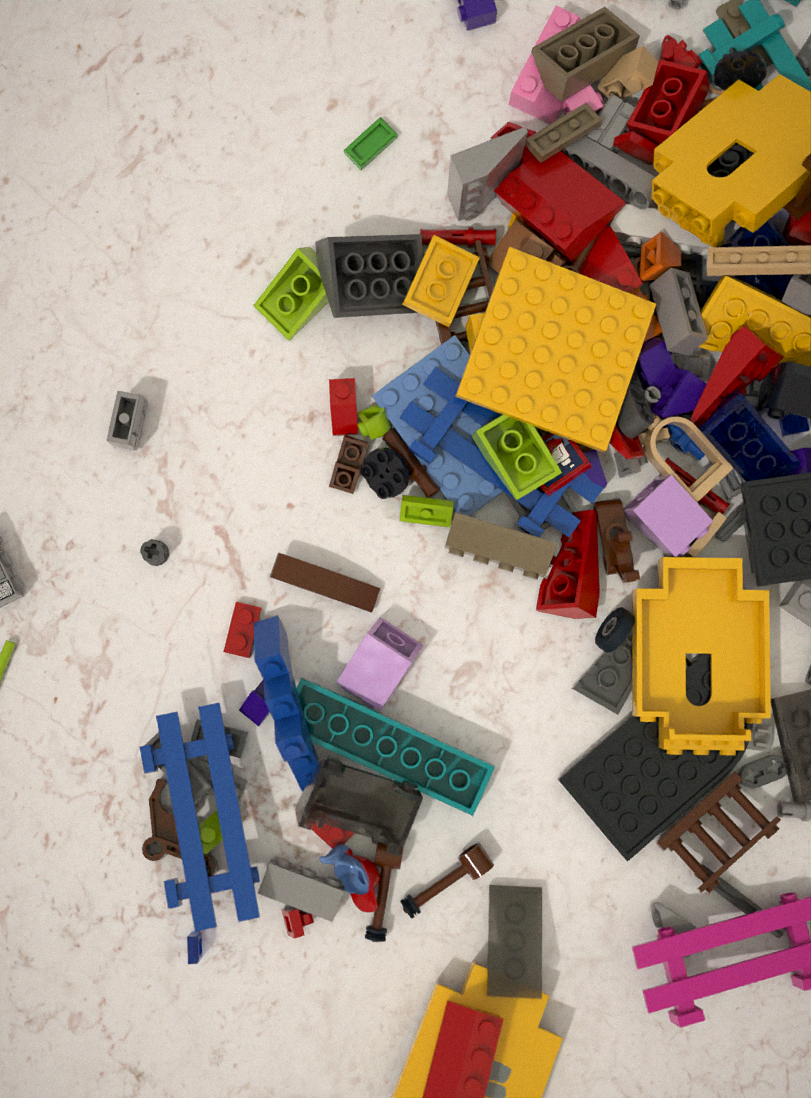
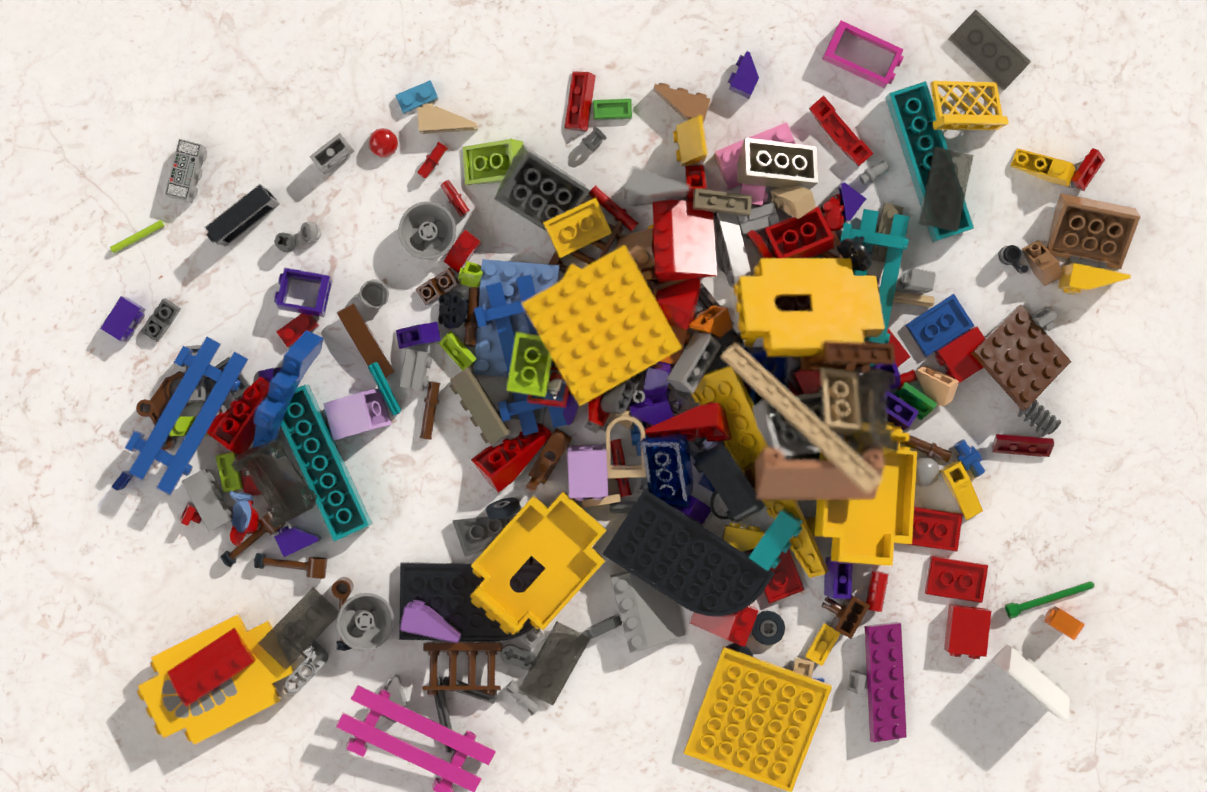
camera: 45 degrees right, 5 degrees up
(53, 775) = (123, 319): none -> dark purple brick
(87, 561) = (241, 216): none -> black window
(93, 743) = (161, 320): none -> dark grey slope
(164, 295) = (417, 96): none -> dark azure plate
(169, 368) = (383, 142): none -> red hair
(171, 520) = (310, 231): none -> light grey tile
(208, 567) = (323, 295): none -> dark purple window
(210, 295) = (437, 120): none -> tan slope
(234, 343) = (432, 160): none -> red axle
(266, 780) = (236, 426): none -> red wedge
(289, 361) = (454, 198): none -> red axle
(290, 398) = (418, 224): none -> light grey piece
(291, 525) = (374, 293): none -> light grey hair
(298, 840) = (229, 478): none -> lime plate
(331, 163) = (580, 101): none -> red slope
(372, 529) = (418, 335): none -> dark purple slope
(378, 185) = (600, 136): none -> dark grey bush
(385, 613) = (384, 388): none -> teal axle
(399, 566) = (414, 370): none -> light grey brick
(428, 851) = (294, 539): none -> dark purple slope
(436, 77) = (684, 103): none -> medium nougat slope
(450, 595) = (430, 410): none -> reddish brown pin
(480, 100) = (690, 141): none -> yellow slope
(550, 960) = (308, 654): none -> beam
(575, 916) = (342, 596): none -> reddish brown piece
(591, 872) = (372, 628): none -> light grey piece
(641, 817) = (425, 621): none -> medium lavender slope
(682, 28) = (850, 200): none -> dark purple slope
(761, 846) = (490, 698): none -> dark grey axle

